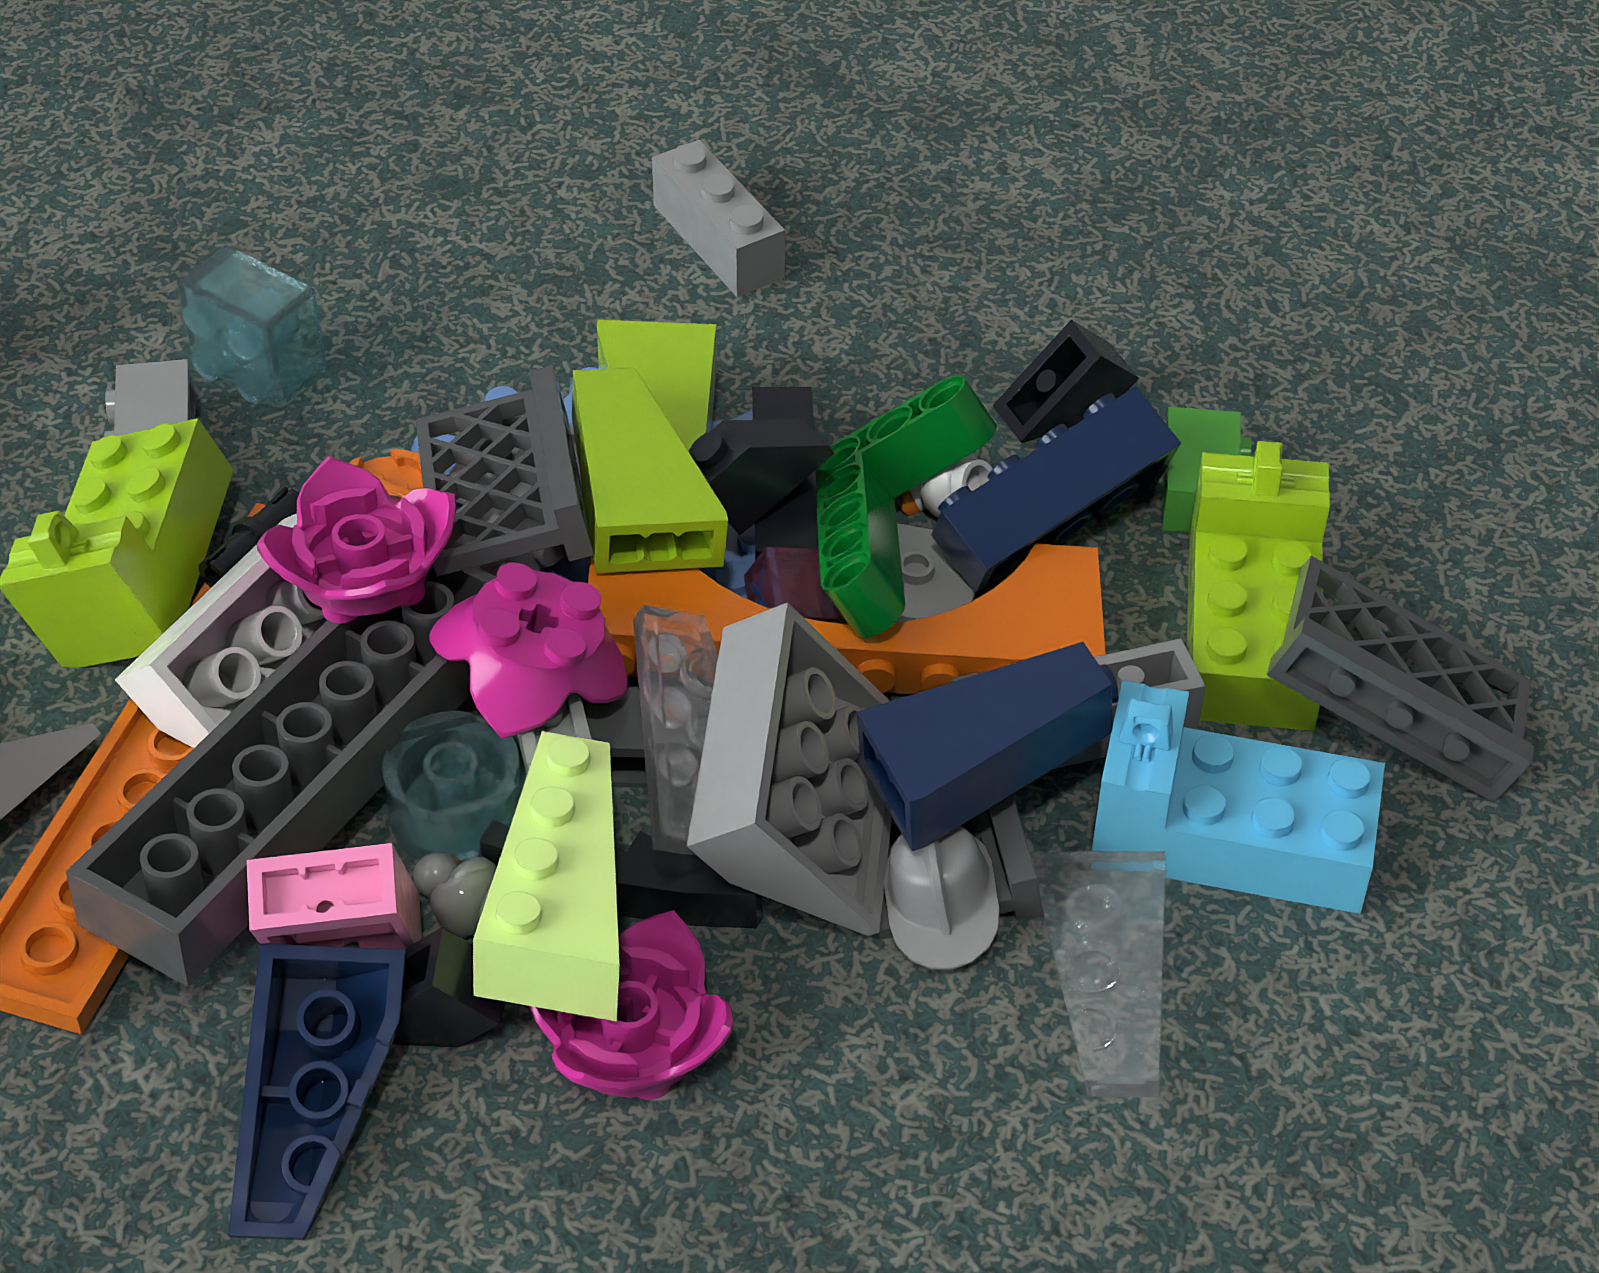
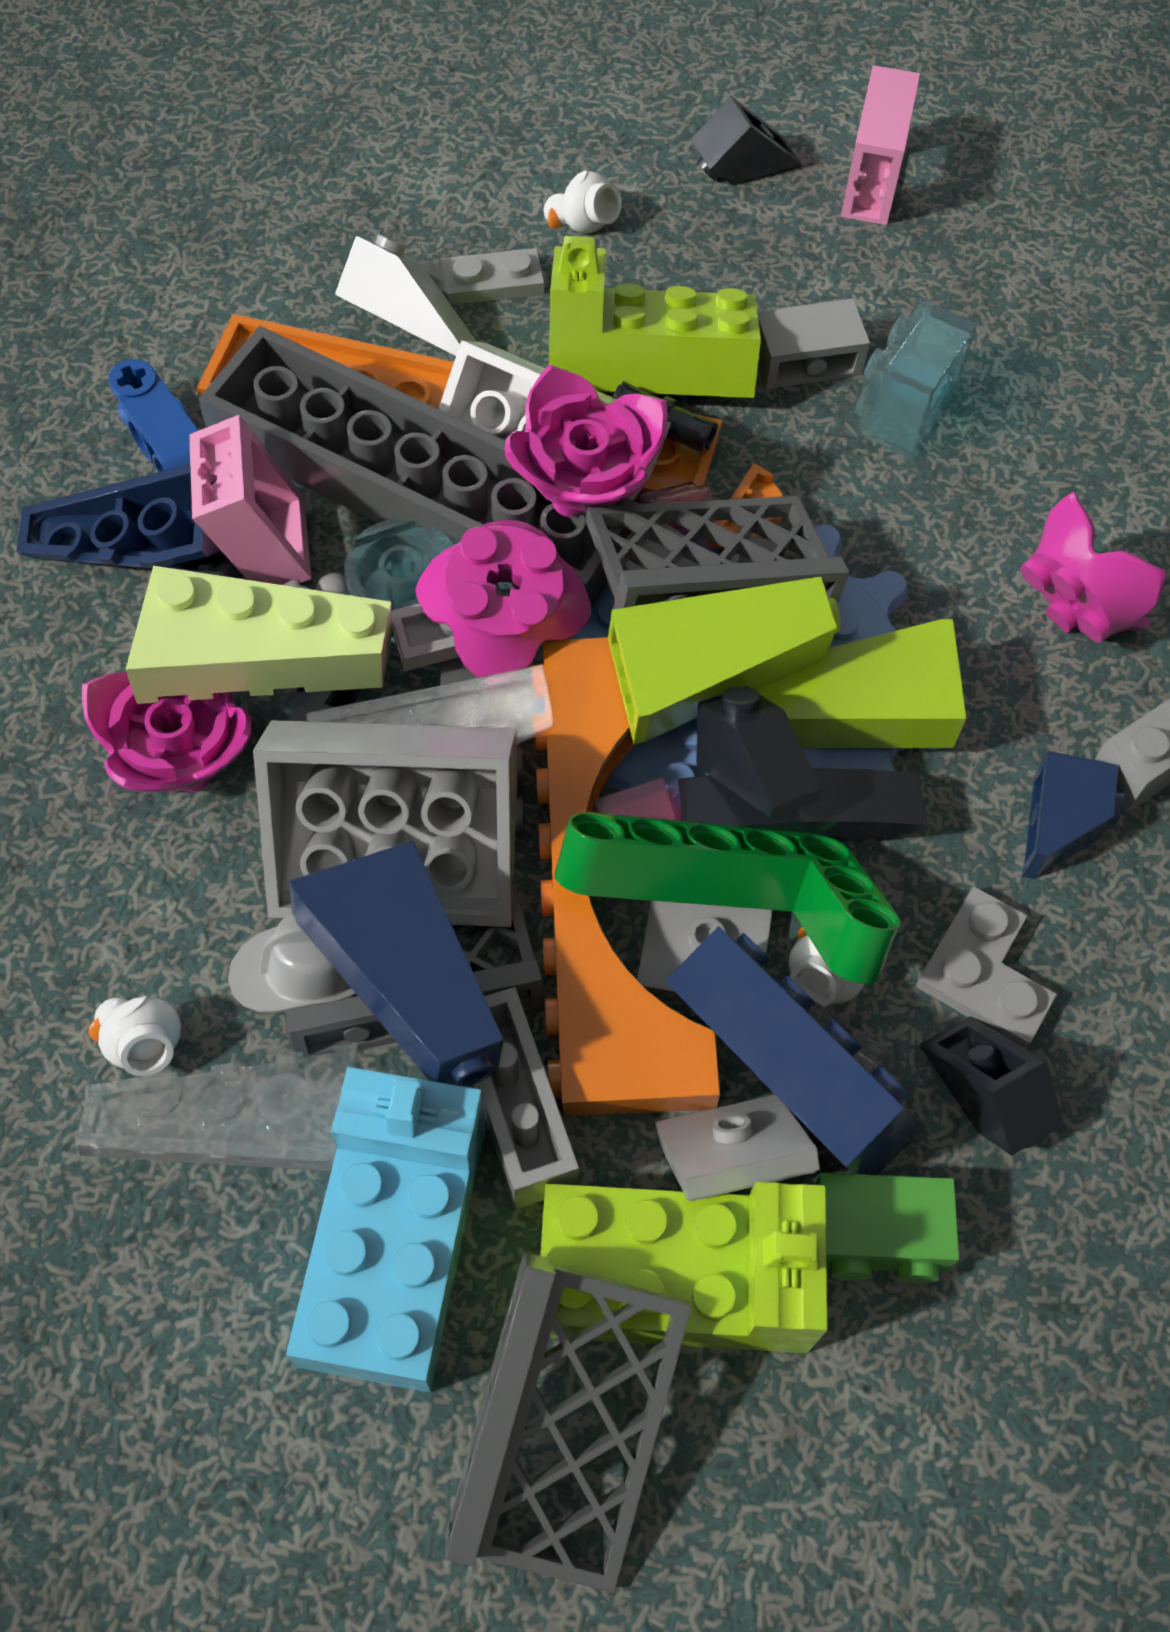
camera: 85 degrees right, 15 degrees up
(136, 1059) = (152, 414): none -> blue piece
(545, 240) = (1086, 588): none -> dark pink brick
(793, 304) = (1069, 809): none -> dark blue slope
(905, 375) = (970, 974): none -> light grey plate
(1030, 1039) = (137, 1033): none -> white animal
(1144, 549) = (736, 1147): none -> light grey plate

